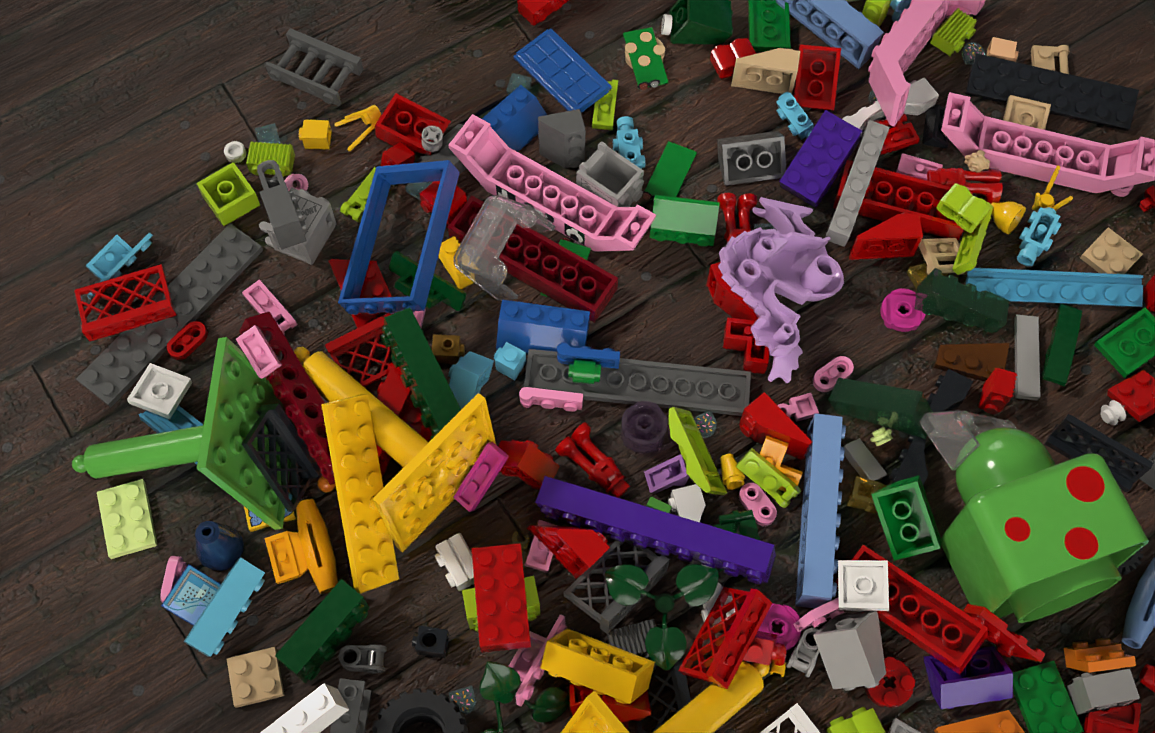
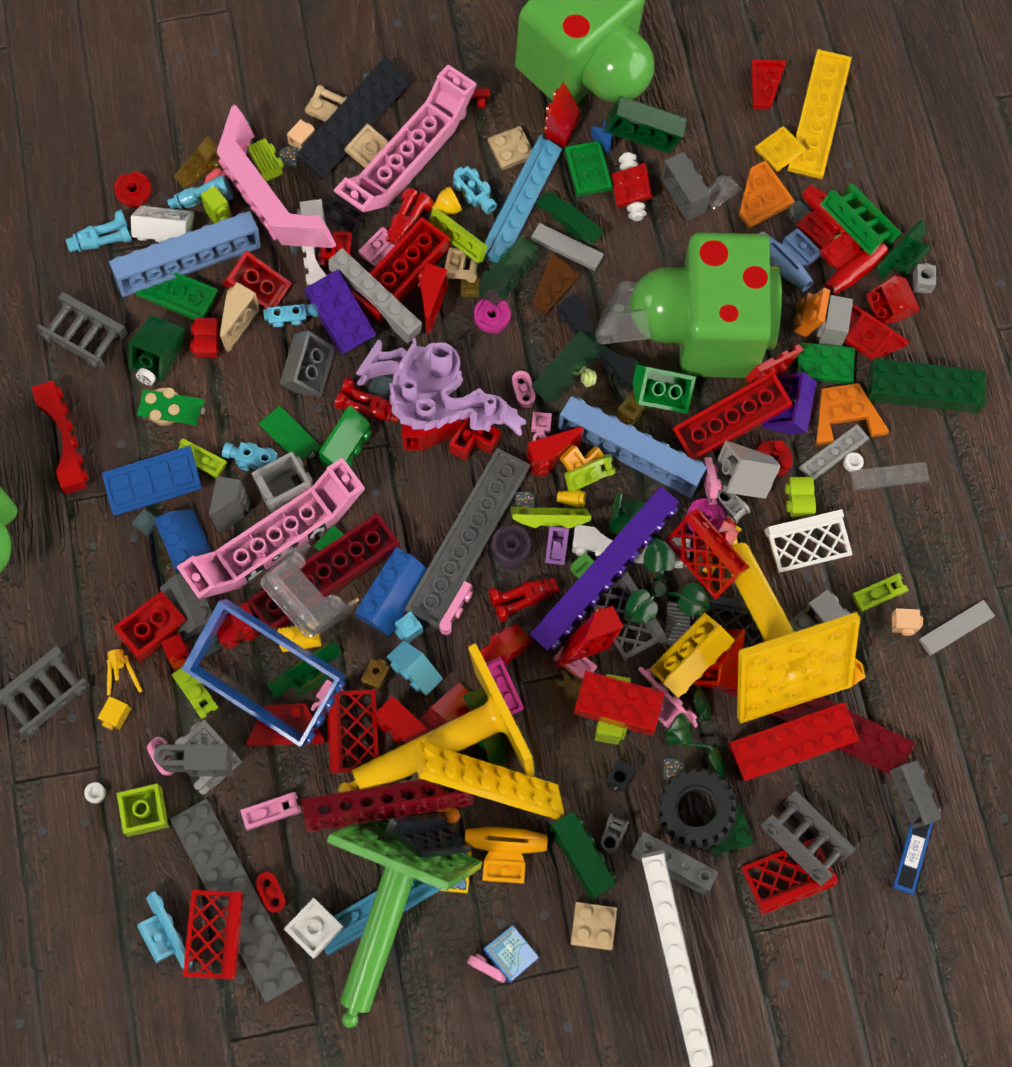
camera: 70 degrees left, 5 degrees up
(126, 519) = (415, 994): yellowish green plate -> none
(218, 545) = (469, 931): dark blue cone -> none
(224, 607) = (529, 931): medium azure brick -> none
(258, 352) = (342, 817): bright pink plate -> none
(261, 152) = (121, 762): lime brick -> none
(268, 134) = (94, 757): clear light blue plate -> none
(419, 370) = (415, 695): dark green brick -> none
(432, 133) = (175, 607): light grey wheel -> none
(457, 560) = (563, 732): white brick -> none
(585, 371) = (447, 571): green brick -> none
(607, 357) = (433, 565): blue plate -> none
(757, 503) = (605, 492): bright pink plate -> none
(863, 461) = (604, 399): light grey slope -> none
(863, 585) = (705, 440): white plate -> none
(963, 207) = (435, 229): lime brick -> none
(977, 161) = (396, 200): tan plant -> none
(997, 391) = (590, 280): red brick -> none
(1046, 199) = (447, 169): yellow plant -> none
(1067, 443) = (664, 237): black fence -> none

